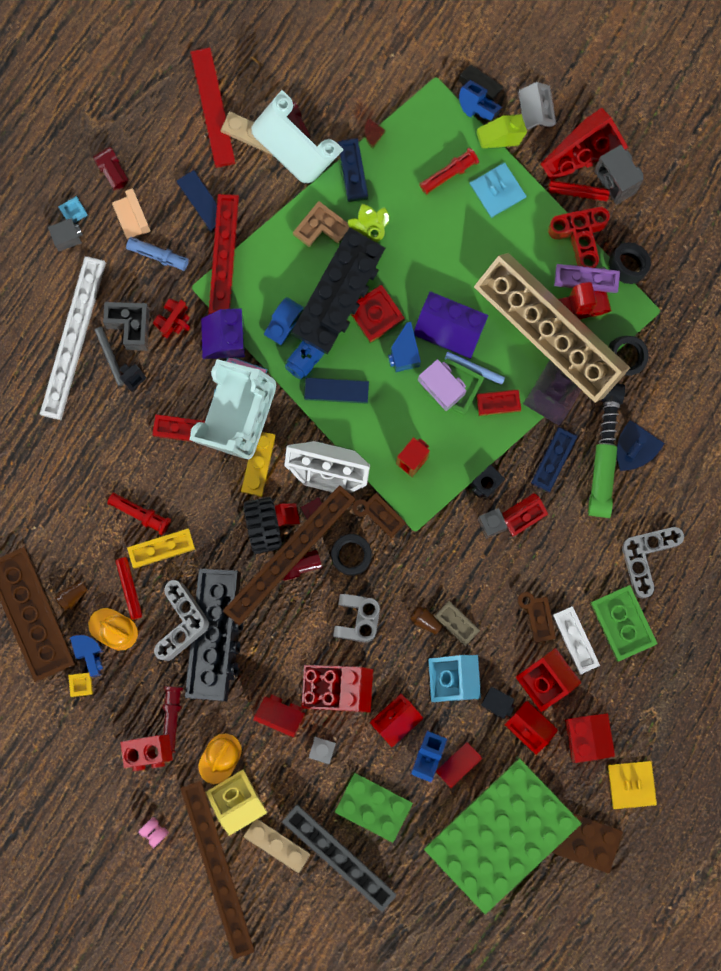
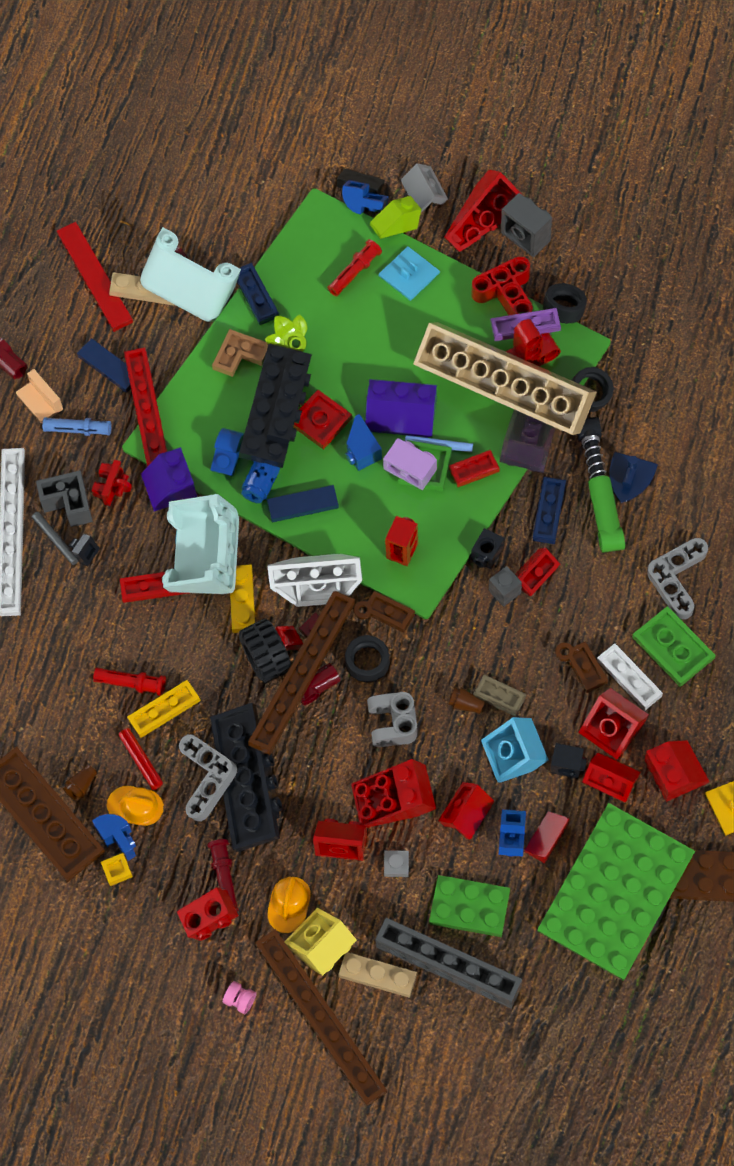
camera: 10 degrees left, 15 degrees down
(373, 133) = (266, 254): clear red tile -> none
(579, 190) = (491, 253): red axle -> none

